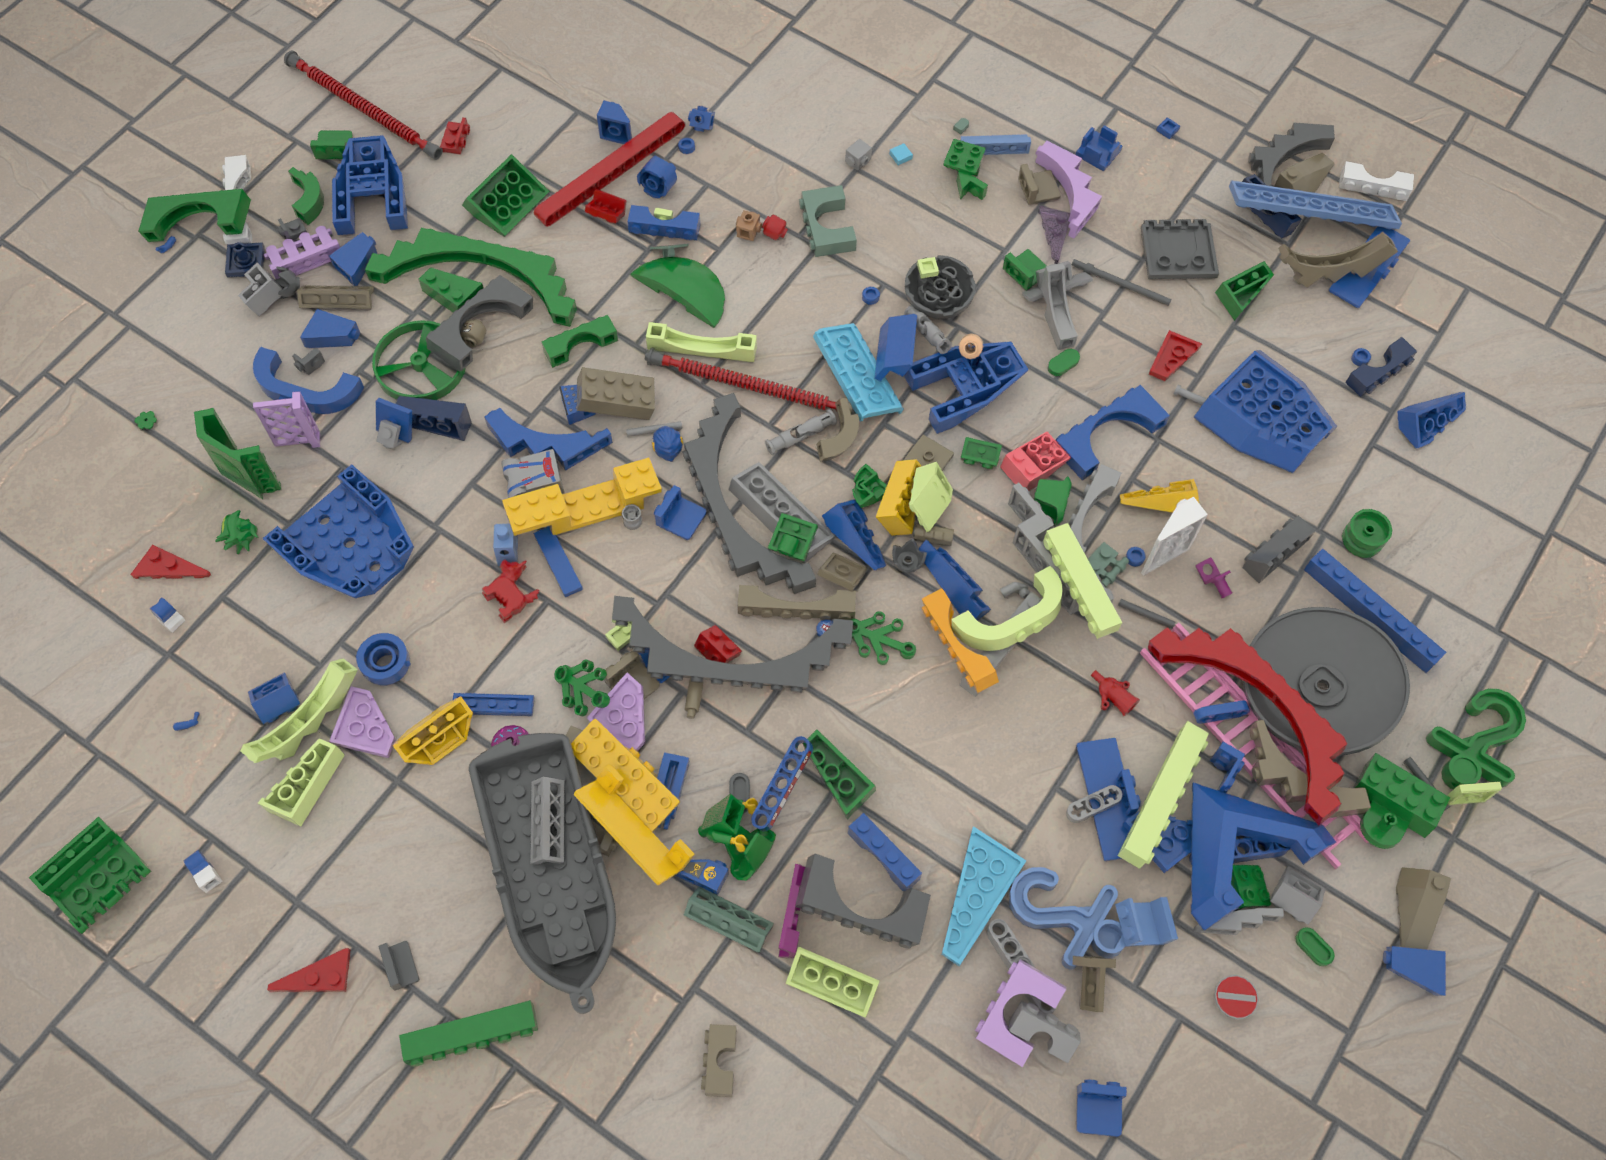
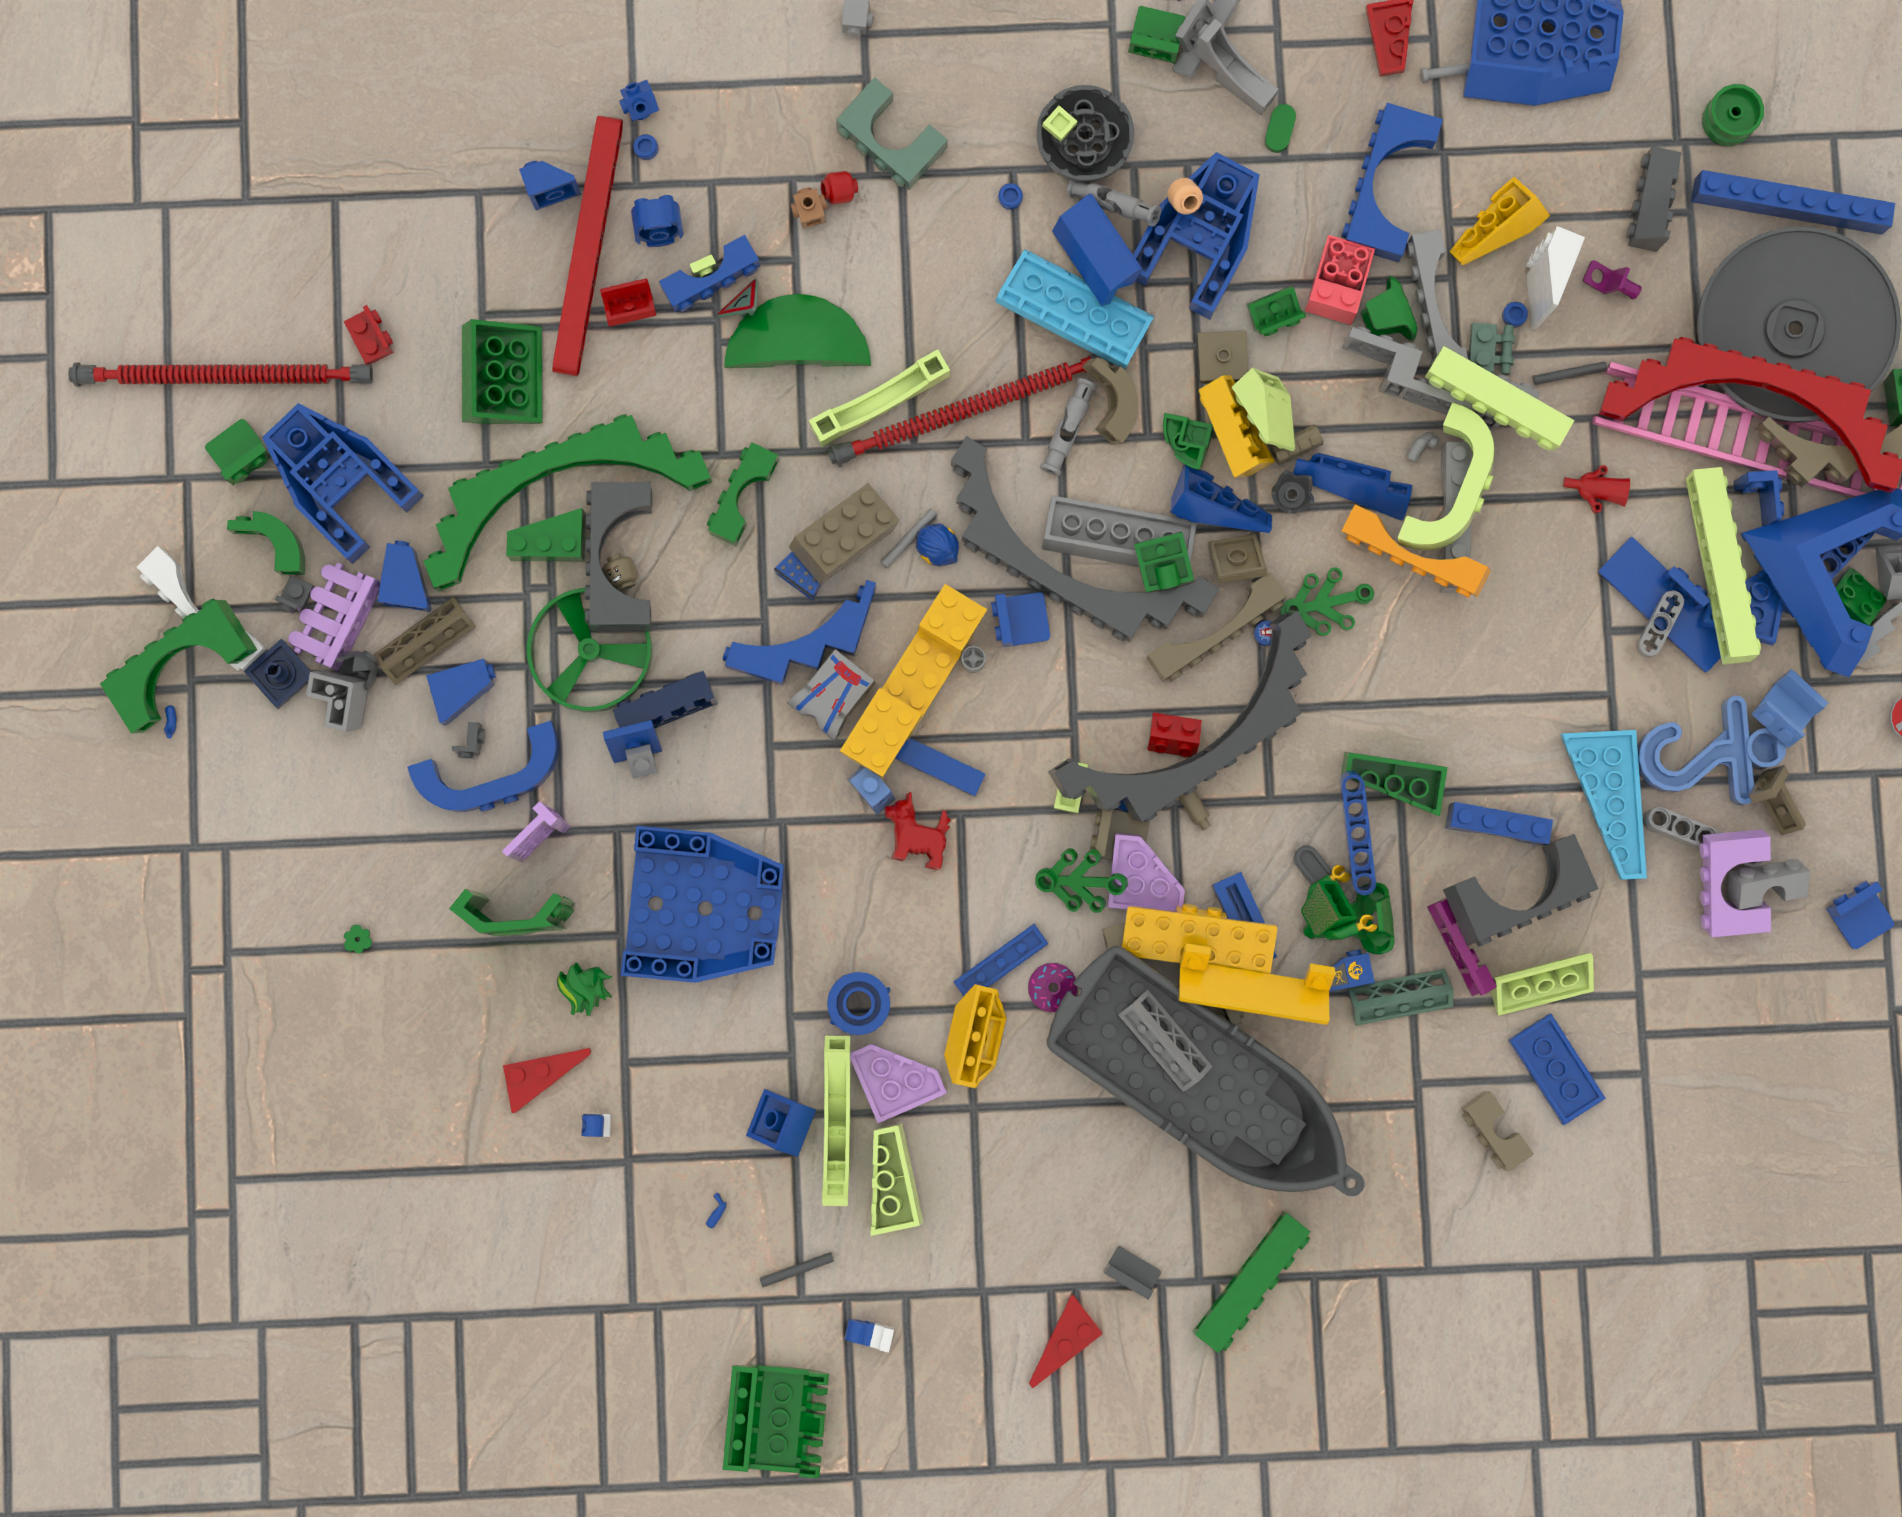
camera: 40 degrees left, 20 degrees up
(199, 795) = (796, 1269): none -> dark grey bar
(797, 1052) = (1556, 1069): none -> blue tile
(1221, 712) = (1719, 434): blue beam -> none

